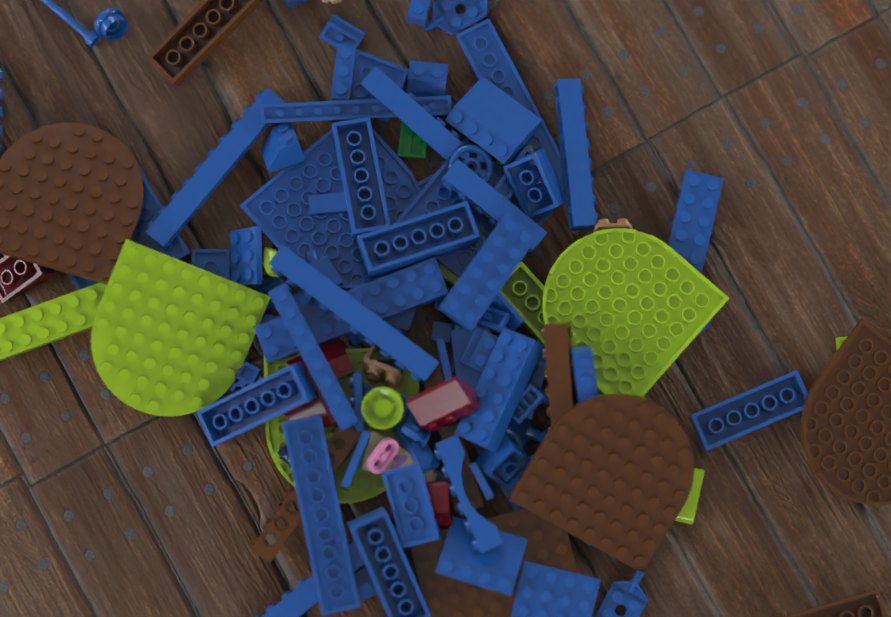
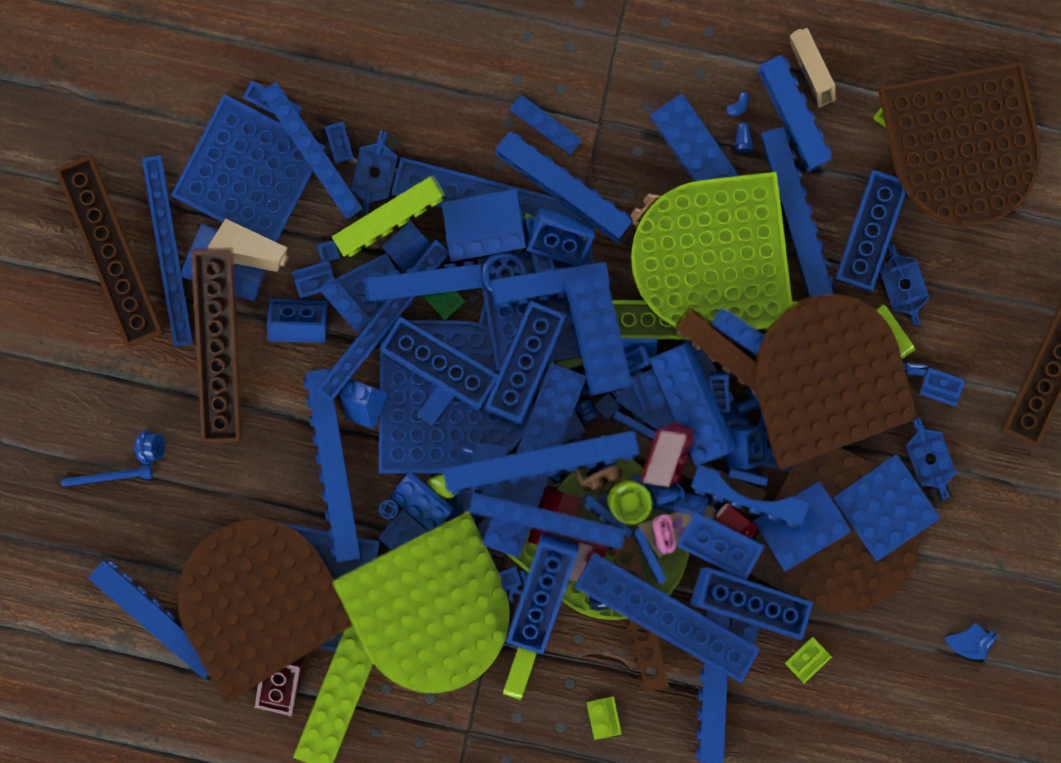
camera: 45 degrees left, 5 degrees up
(182, 443) = (519, 673): none -> lime beam
(204, 537) = (604, 718): none -> lime plate
(221, 241) = (390, 511): none -> blue wheel
(300, 49) = (297, 320): none -> blue slope
(372, 28) = (328, 251): none -> blue tile
(423, 319) = (586, 411): none -> blue wheel
(437, 44) = (385, 217): none -> lime brick
(609, 102) = (545, 125): none -> blue plate
(676, 537) = (914, 369): none -> blue axle
(682, 570) = (942, 387): none -> blue plate
(714, 342) = (797, 213): none -> blue brick
(722, 484) = (902, 300): none -> blue plate
(732, 255) = (743, 138): none -> blue cone
(752, 232) = (740, 107): none -> blue arm
(784, 275) = (794, 113): none -> blue brick
(831, 259) = (813, 67): none -> tan slope

